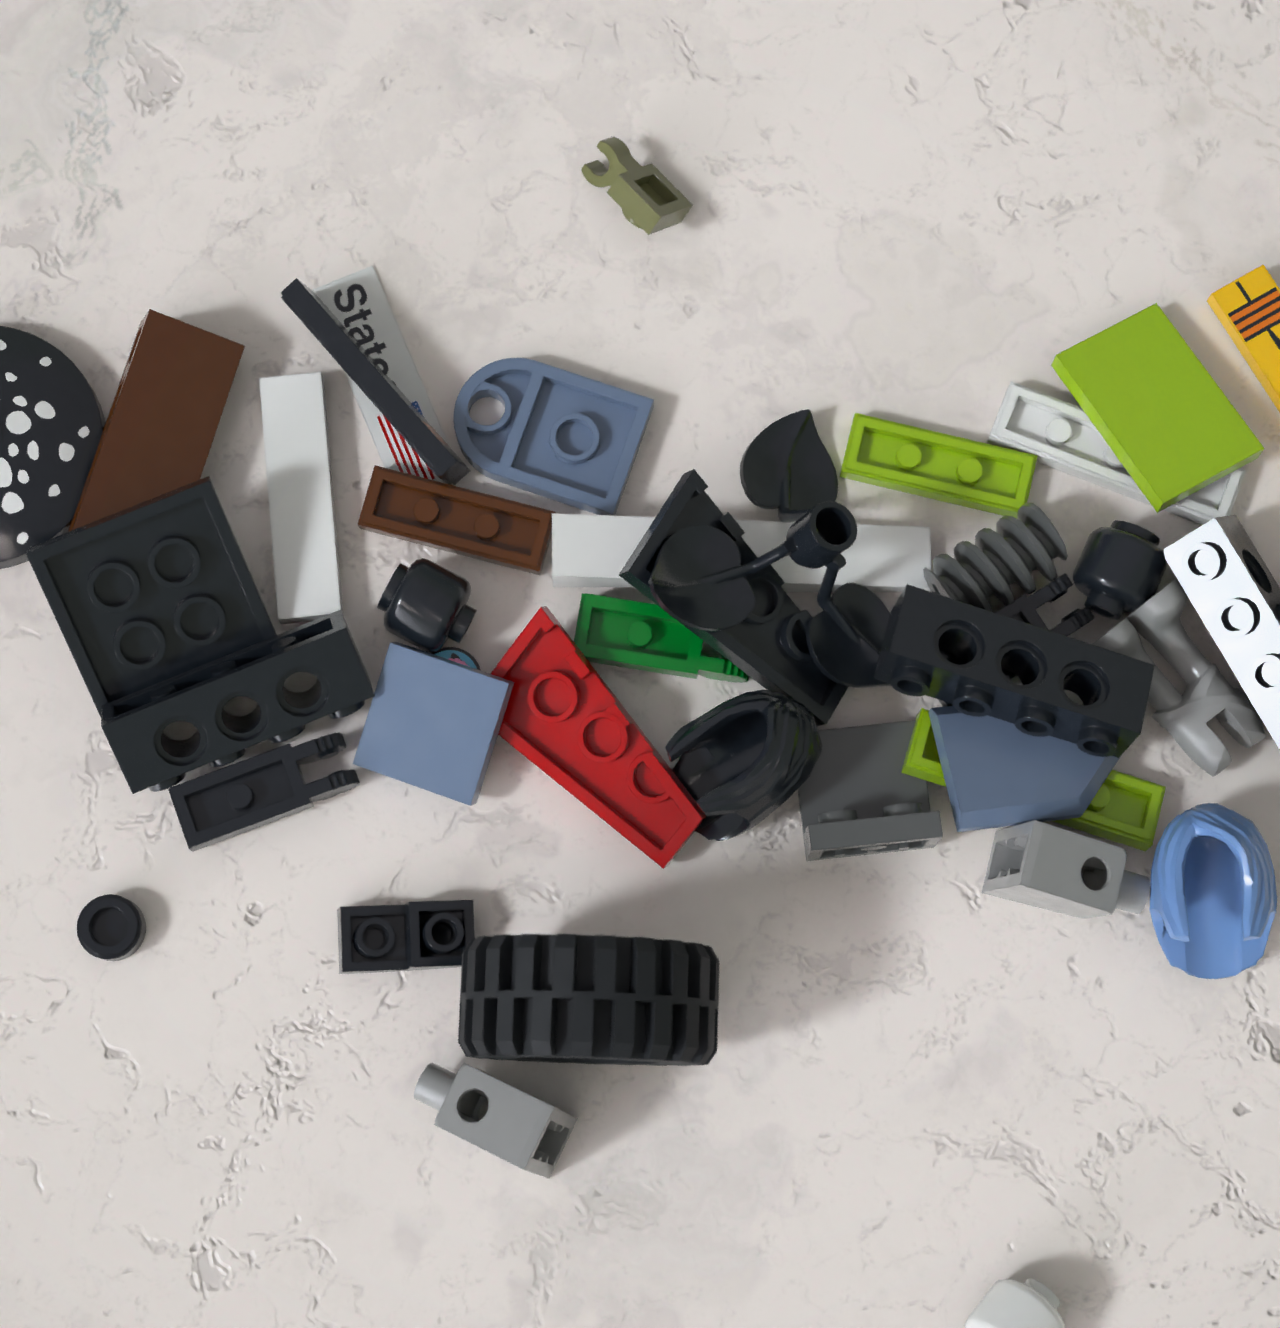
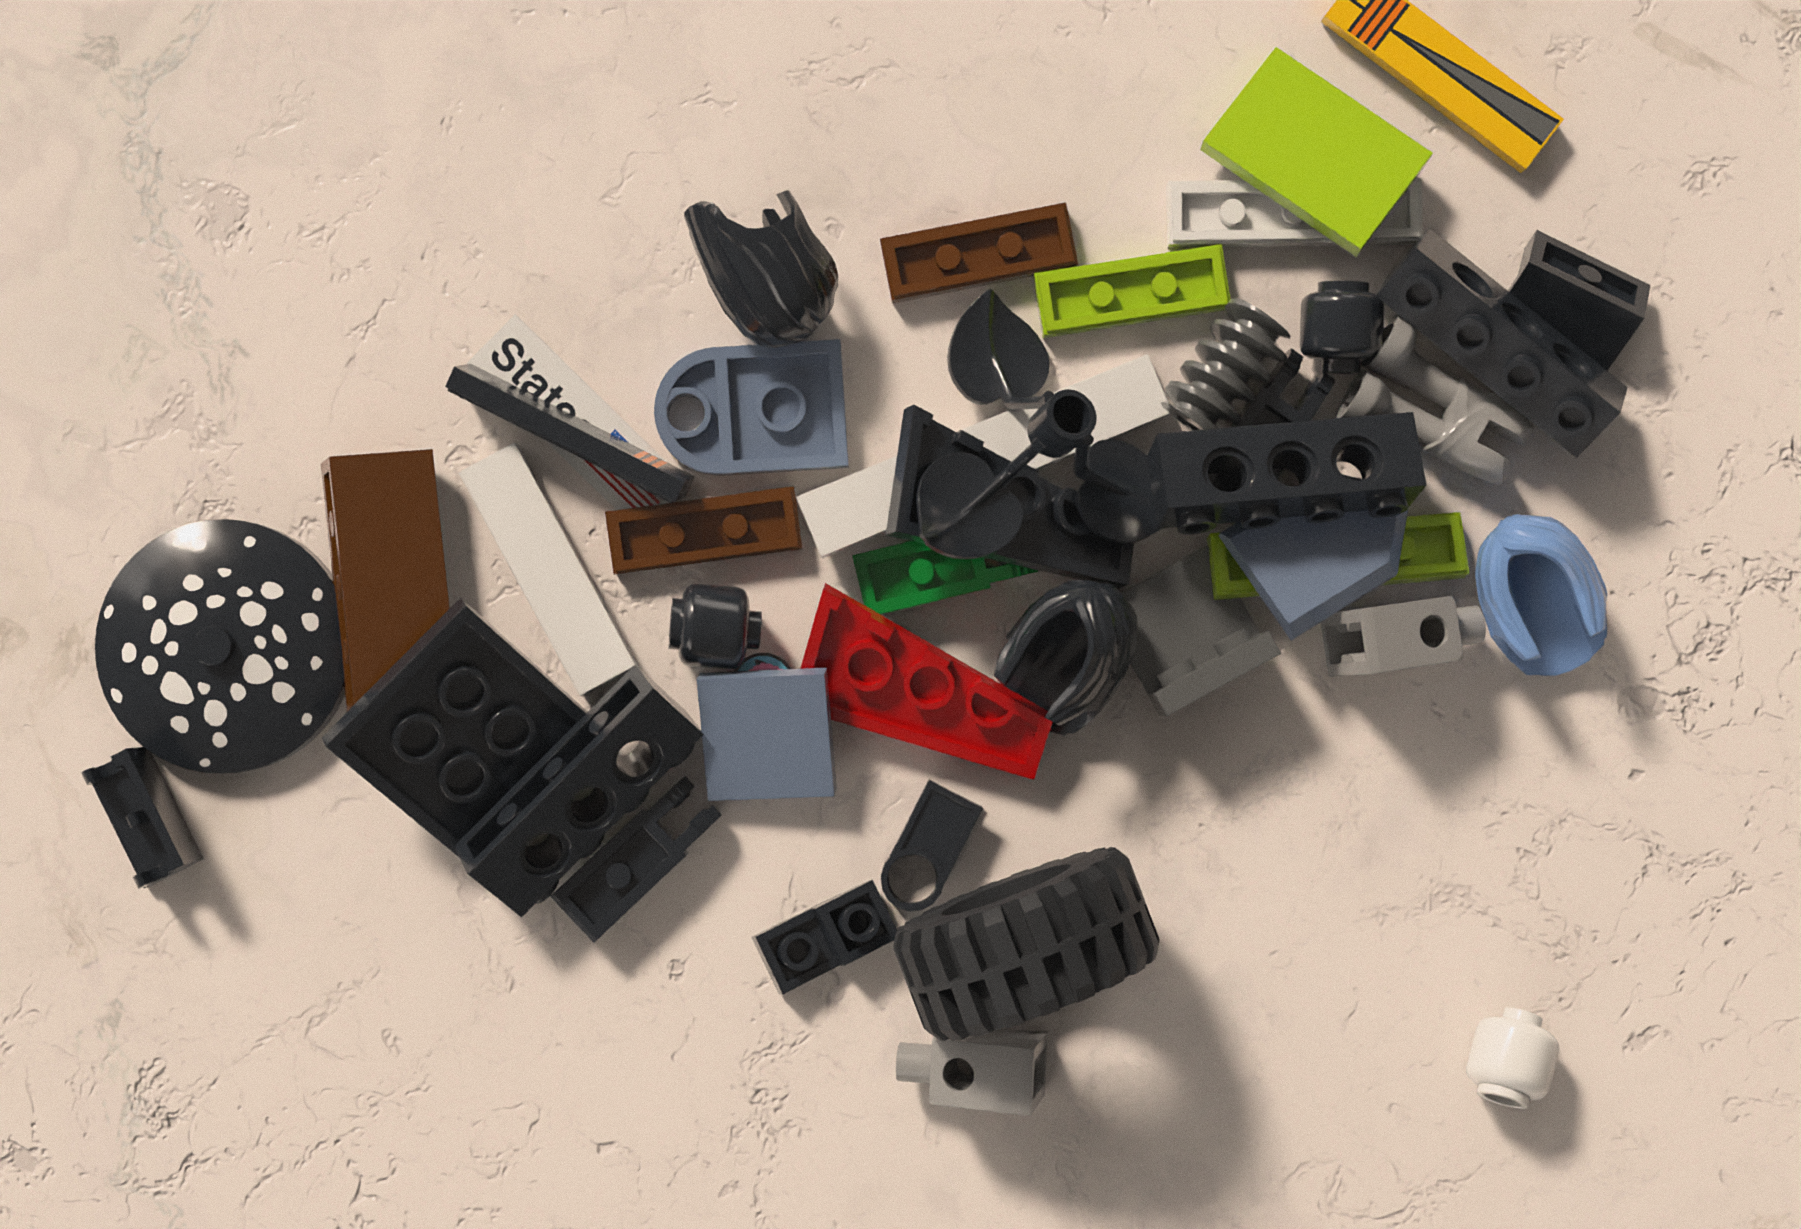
camera: 25 degrees left, 10 degrees up
(111, 927) = (553, 1040): black tile -> none
(551, 879) = (938, 833): none -> black piece
(611, 310) = (767, 279): none -> black hair
(641, 191) = (740, 138): olive plate -> none
(810, 376) = (978, 252): none -> reddish brown tile

